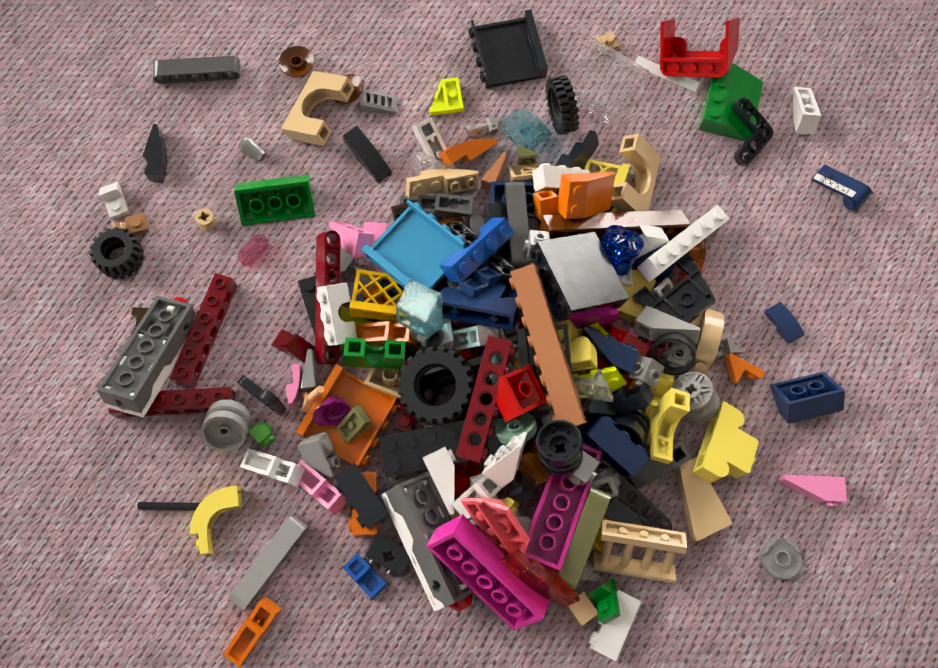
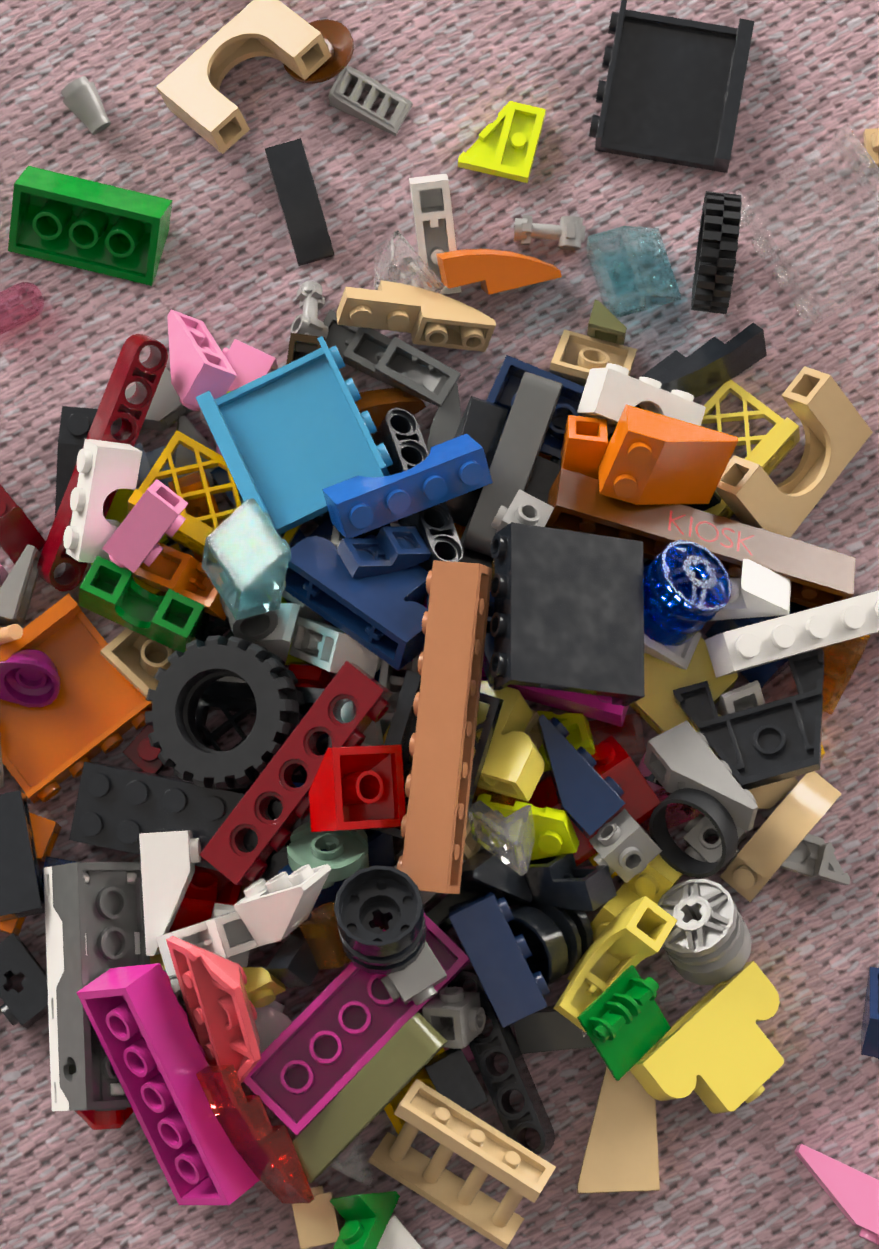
camera: 30 degrees right, 5 degrees up
(354, 424) = (55, 719): olive slope -> none
(363, 314) = (144, 527): none -> bright pink brick
(390, 194) = (310, 301): none -> light grey bar
(494, 172) = (532, 335): nougat slope -> none
(684, 450) = (625, 1021): none -> green hinge
(738, 366) = (816, 906): orange slope -> none

